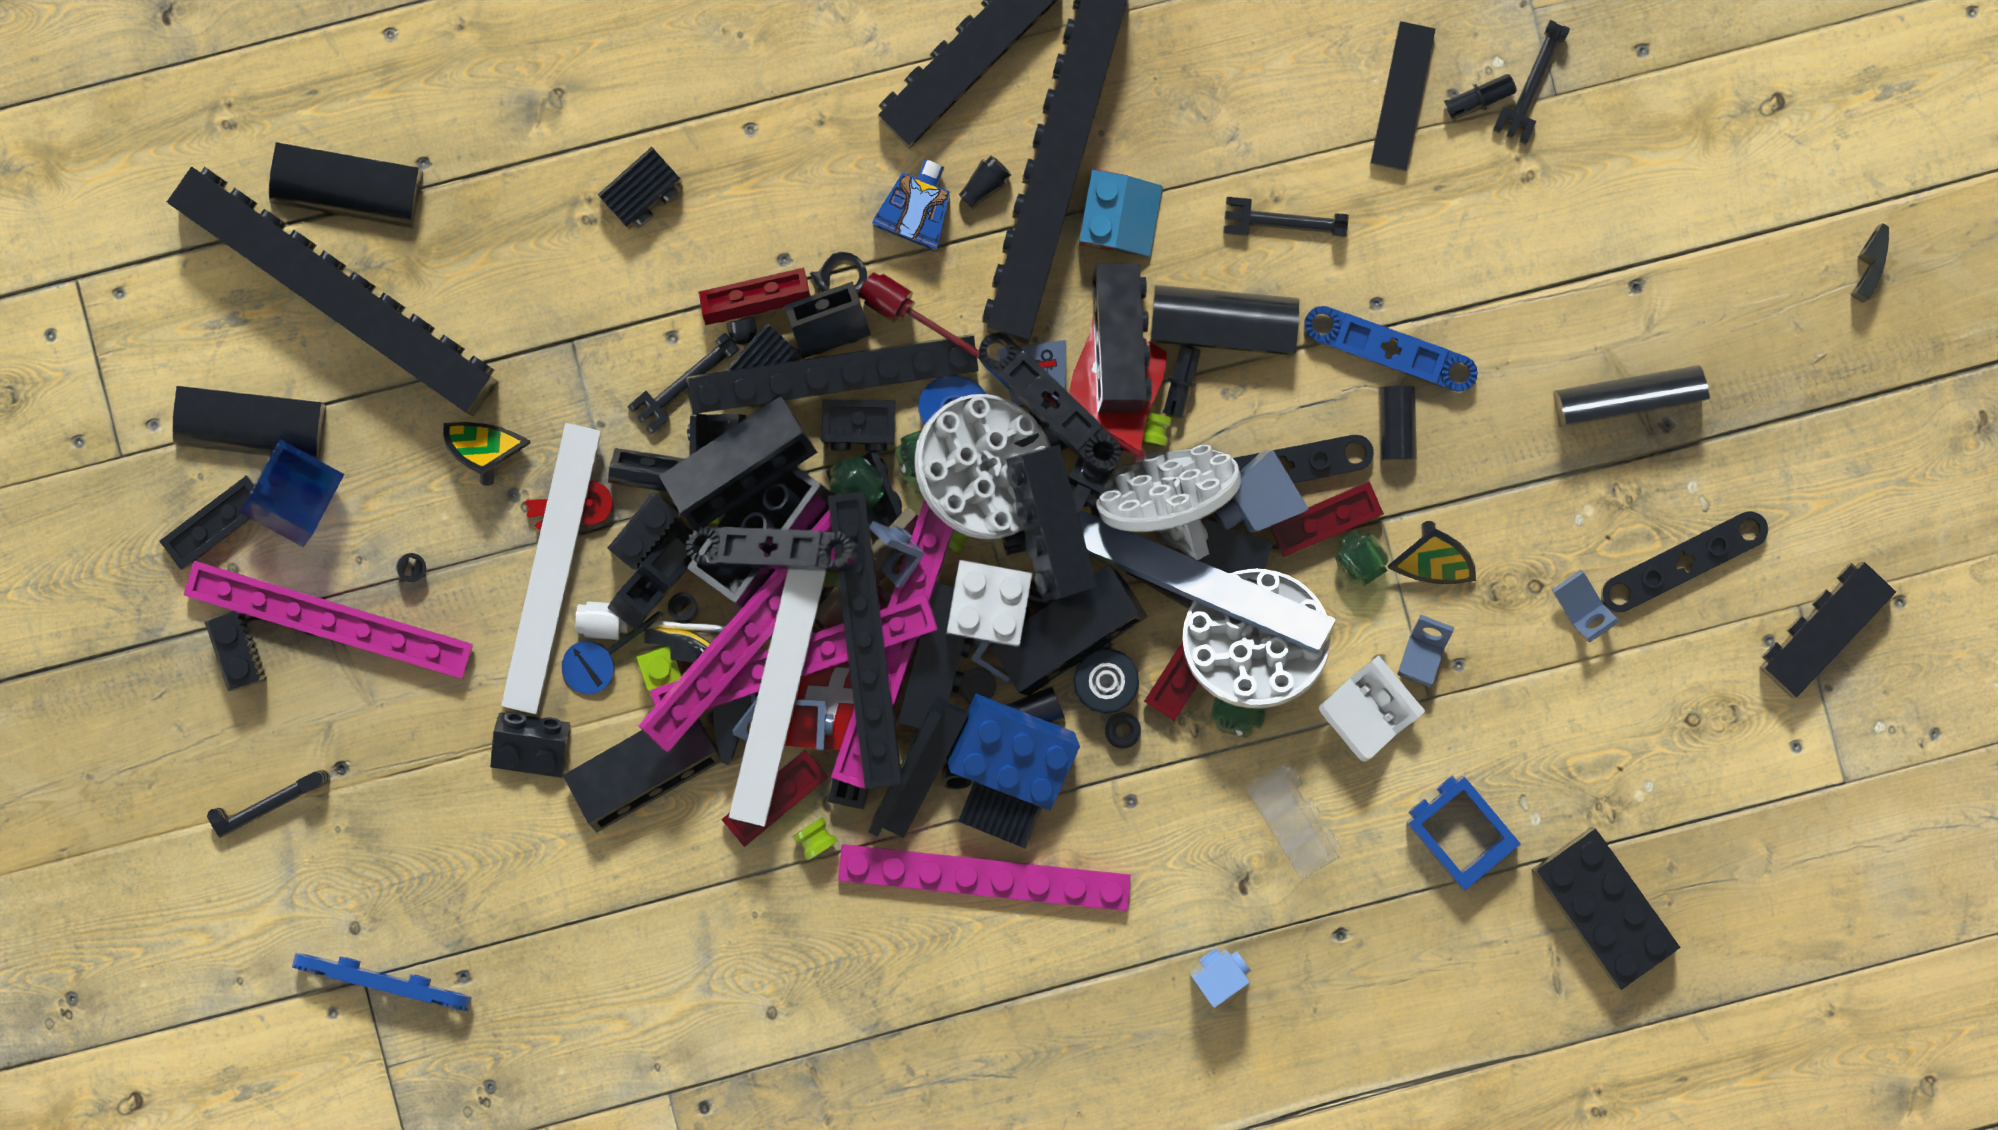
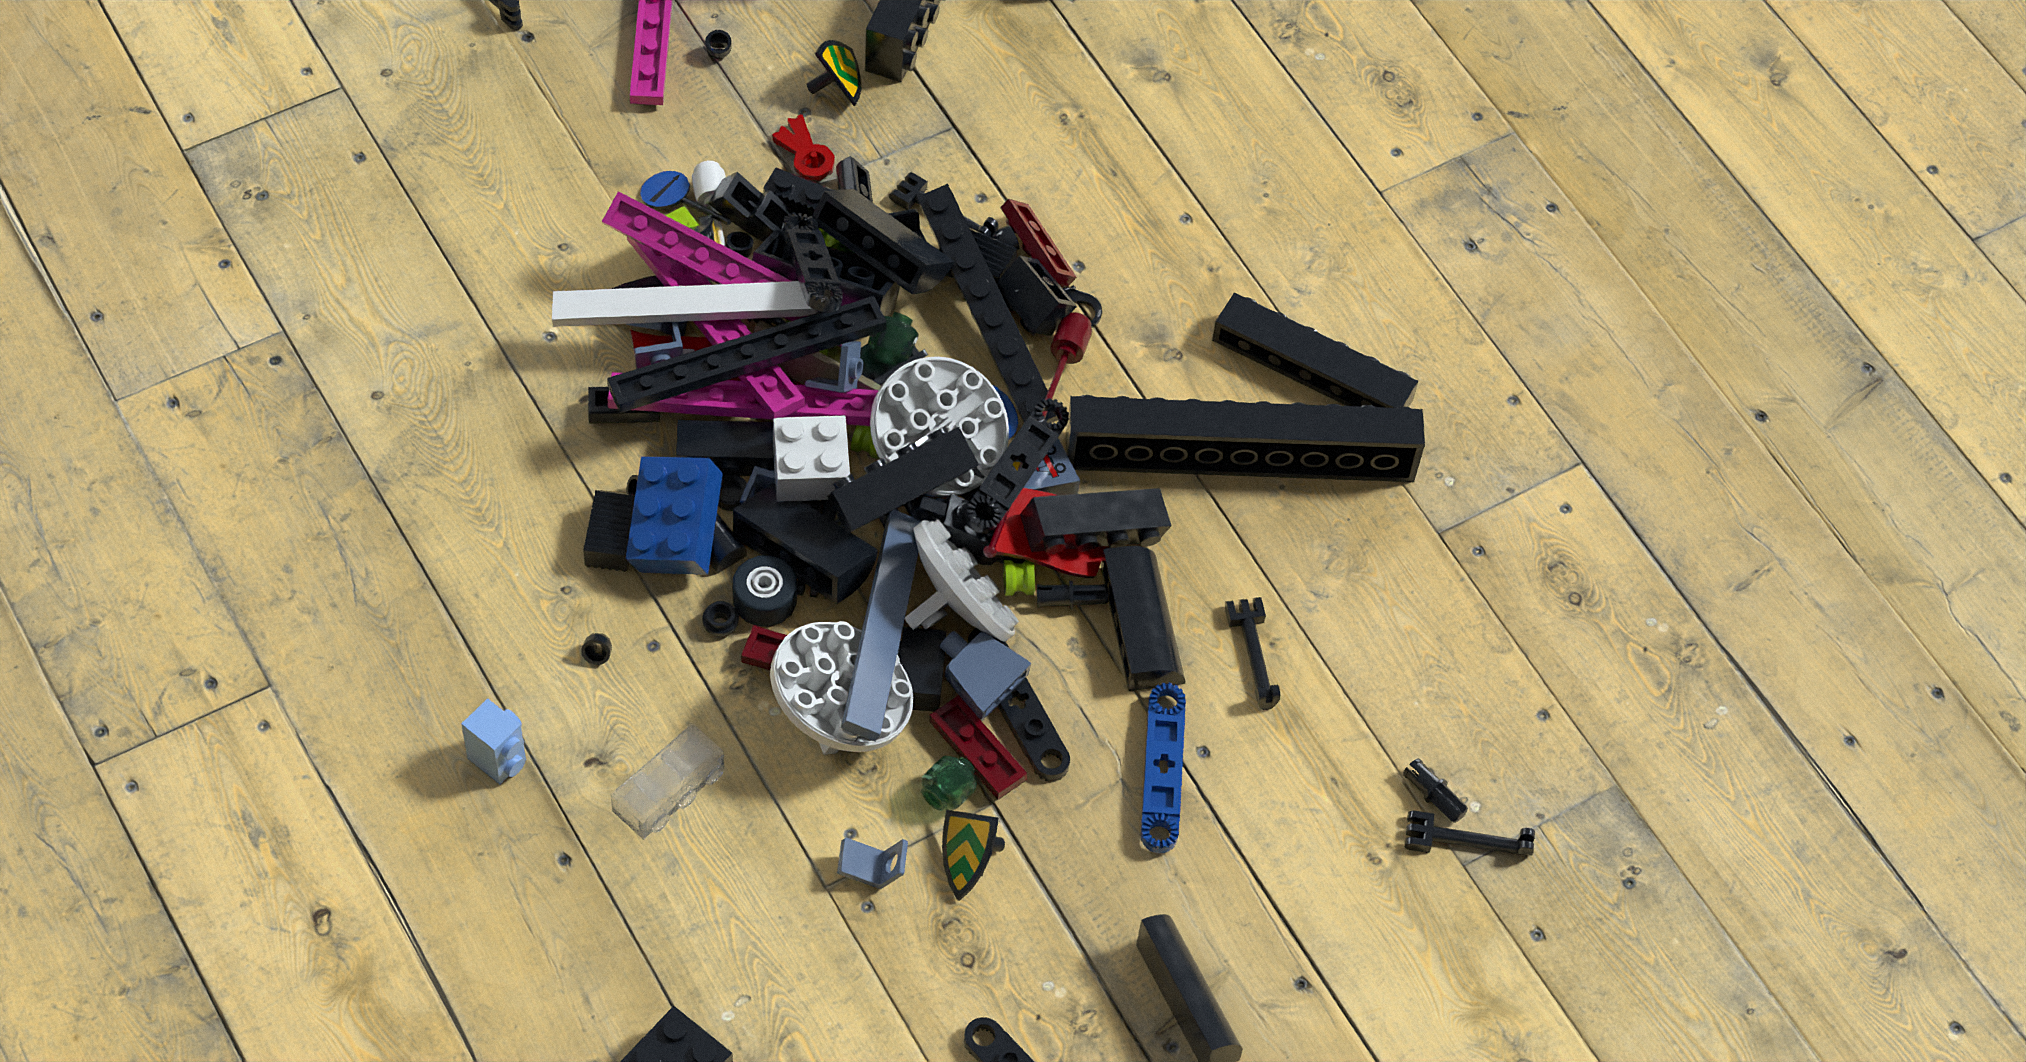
camera: 70 degrees right, 30 degrees down
(349, 971) = (340, 114): blue piece -> none
(529, 744) = (583, 158): black bracket -> none
(551, 568) = (746, 141): white tile -> none
(638, 774) = (579, 239): black brick -> none
(641, 189) = (1104, 141): black brick -> none
(792, 785) = (580, 349): dark red plate -> none
(815, 838) = (551, 387): lime wheel -> none
(858, 423) = (947, 336): black bracket -> none
(916, 207) = (1161, 347): torso -> none
(919, 768) = (611, 447): black fence -> none
(984, 877) = (547, 538): dark pink plate -> none
(985, 181) = (1201, 391): black cone -> none
(1120, 213) = (1212, 507): dark azure slope -> none
(1127, 856) = (589, 649): none -> black hinge
(1236, 719) = (761, 711): clear green head -> none
(1370, 709) = (797, 819): white bracket -> none
(1397, 423) = (1093, 792): black brick -> none
(1402, 96) = (1410, 725): black tile -> none
(1485, 861) = (675, 970): blue window -> none
(1583, 606) = (963, 997): sand blue bracket -> none

